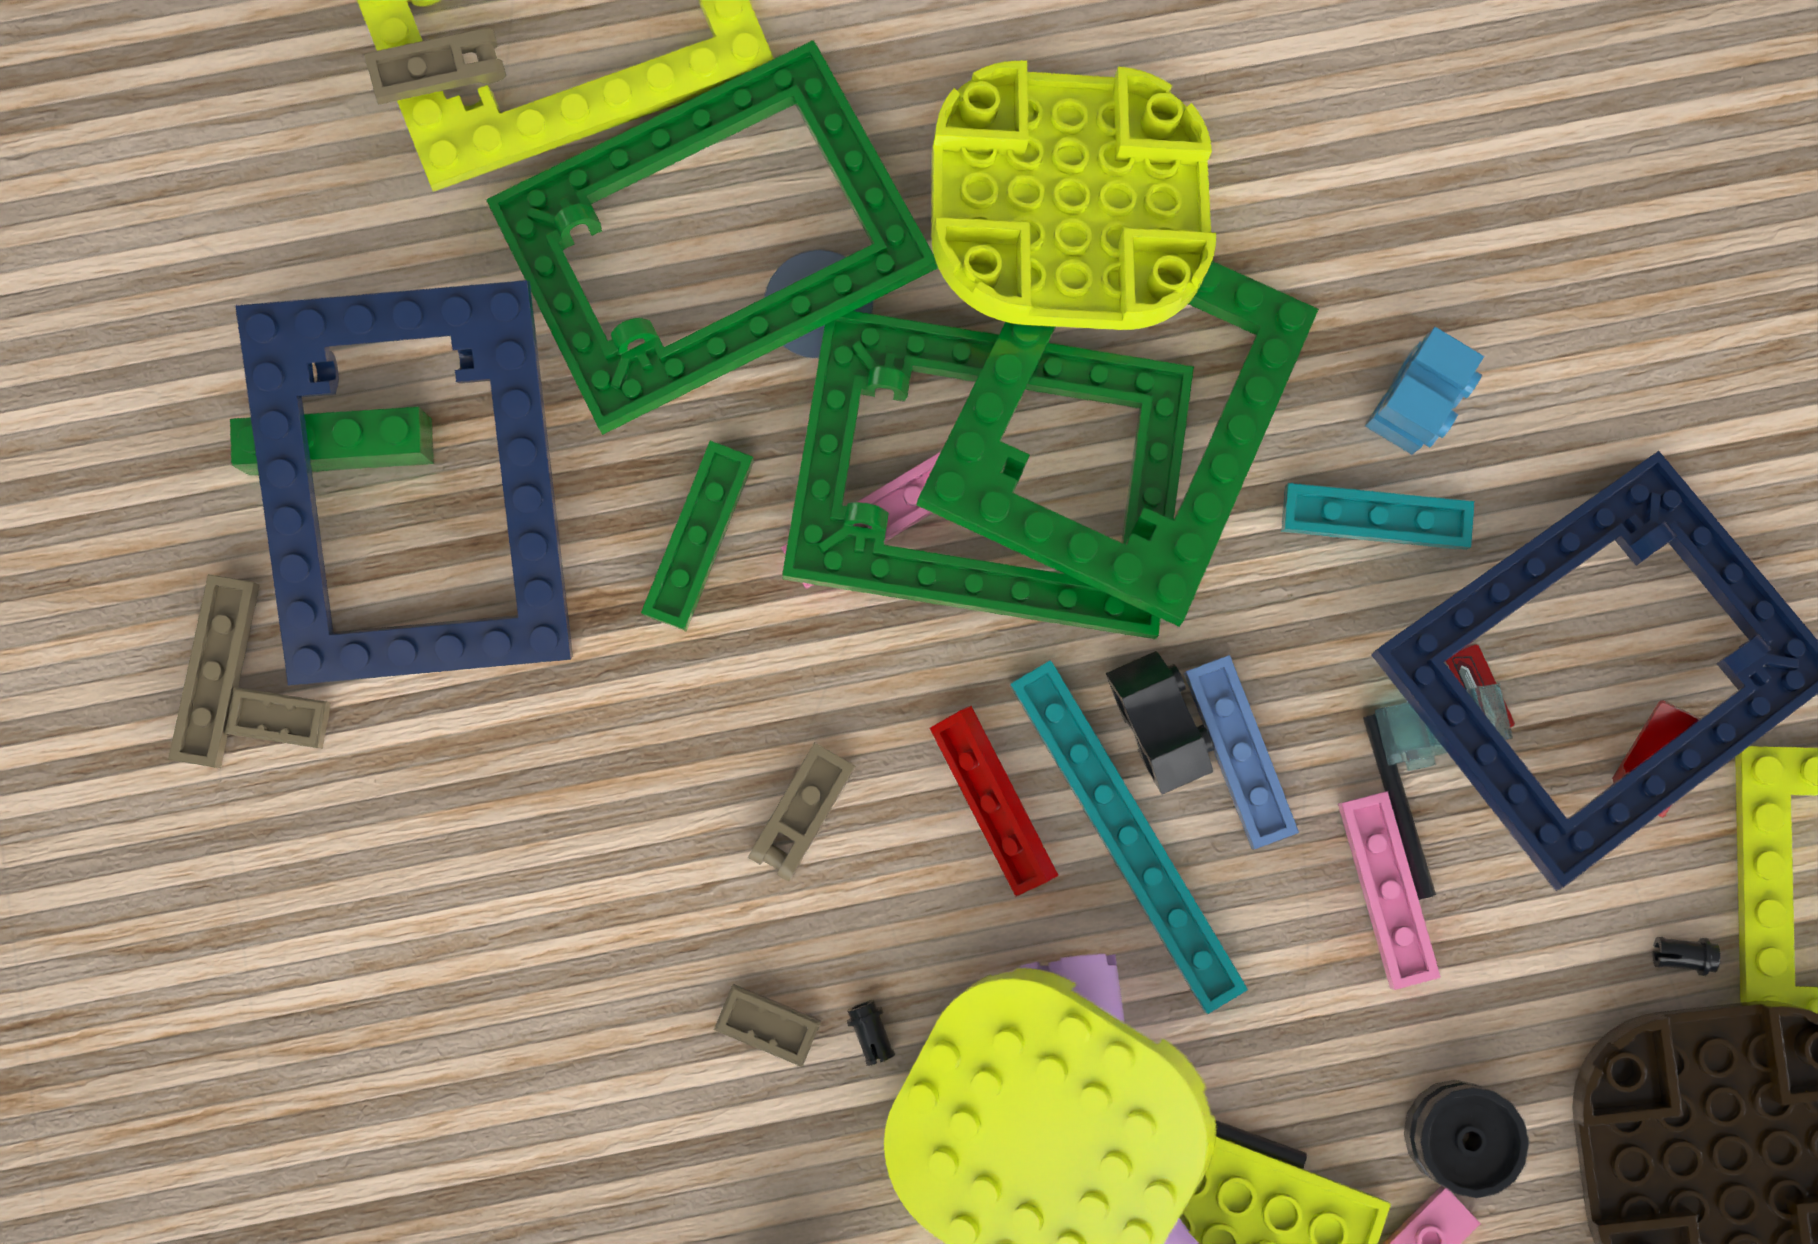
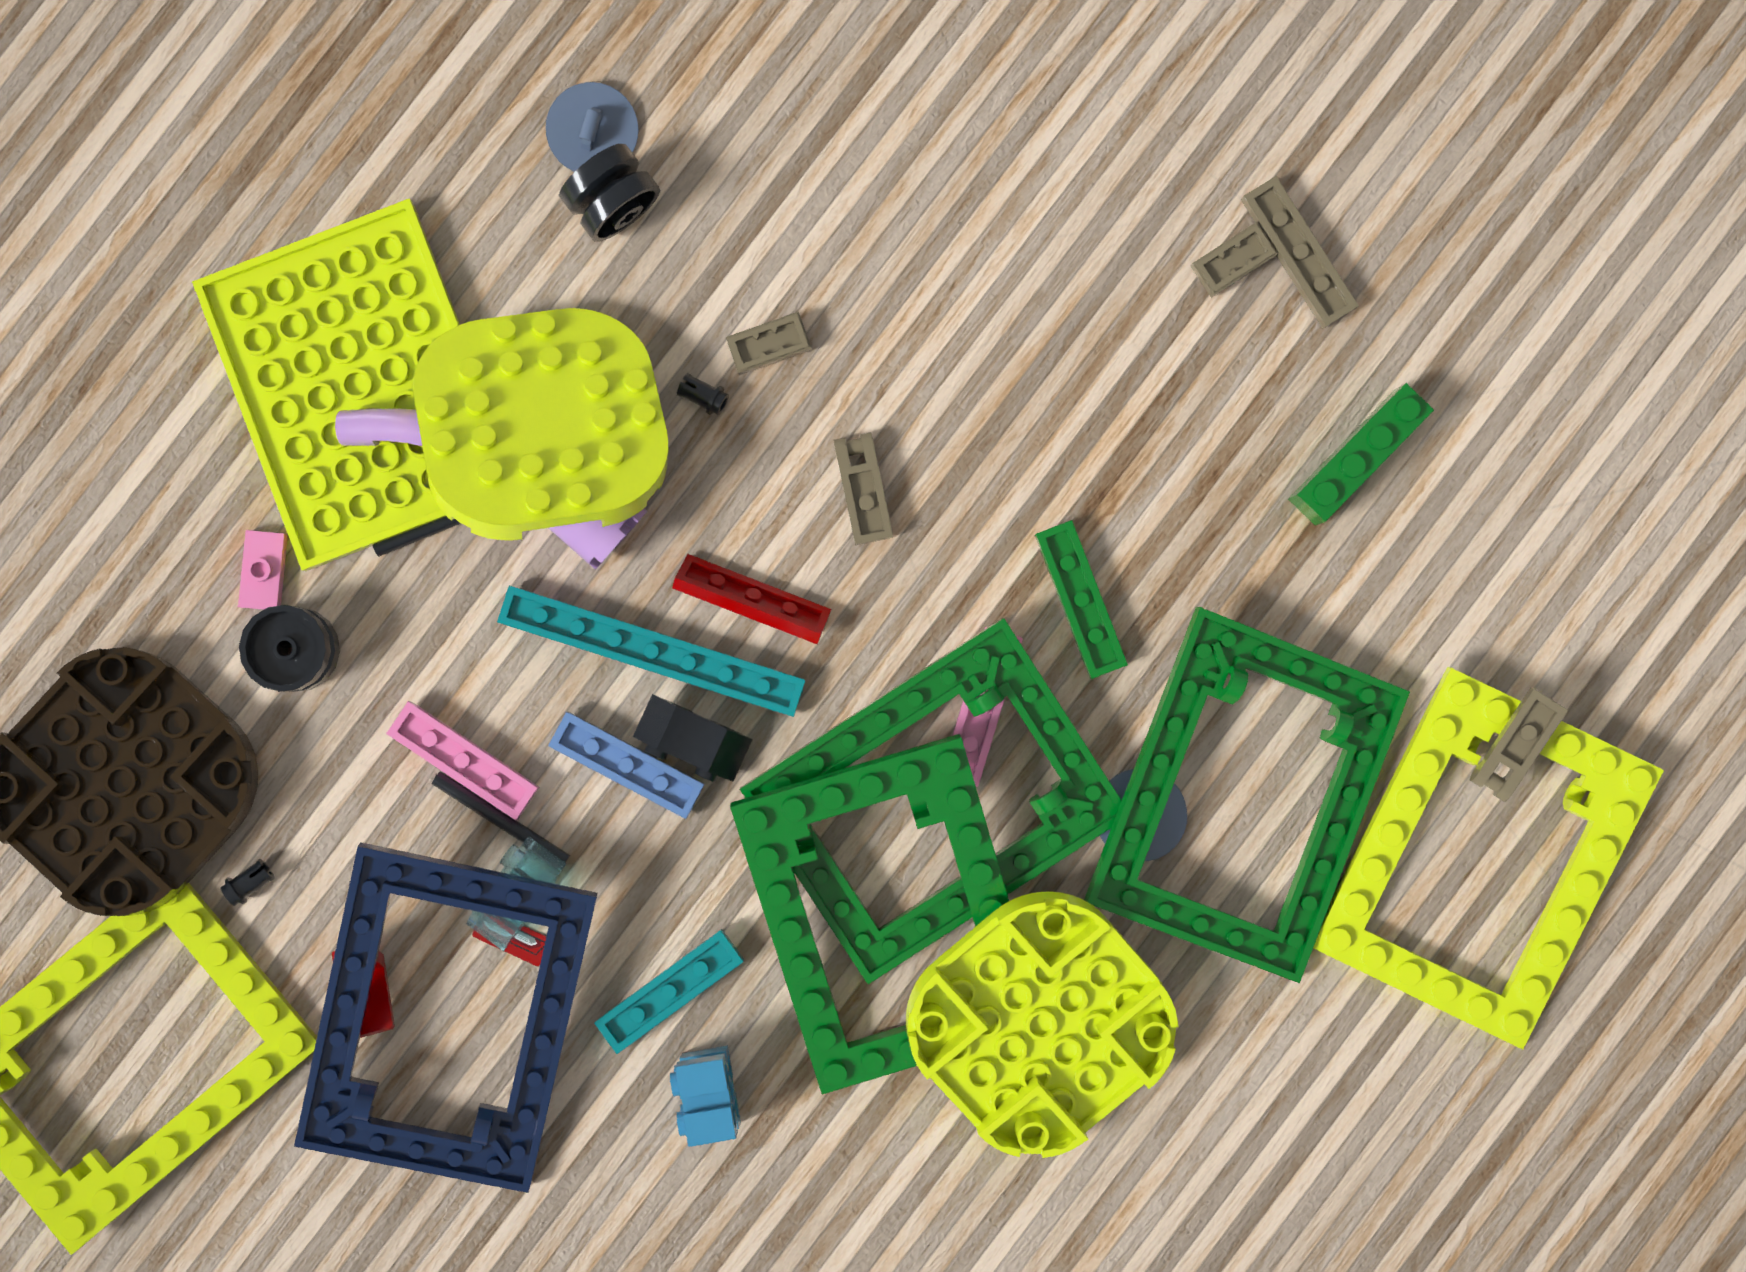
camera: 135 degrees right, 5 degrees up
(495, 343) = (1311, 601): dark blue plate -> none

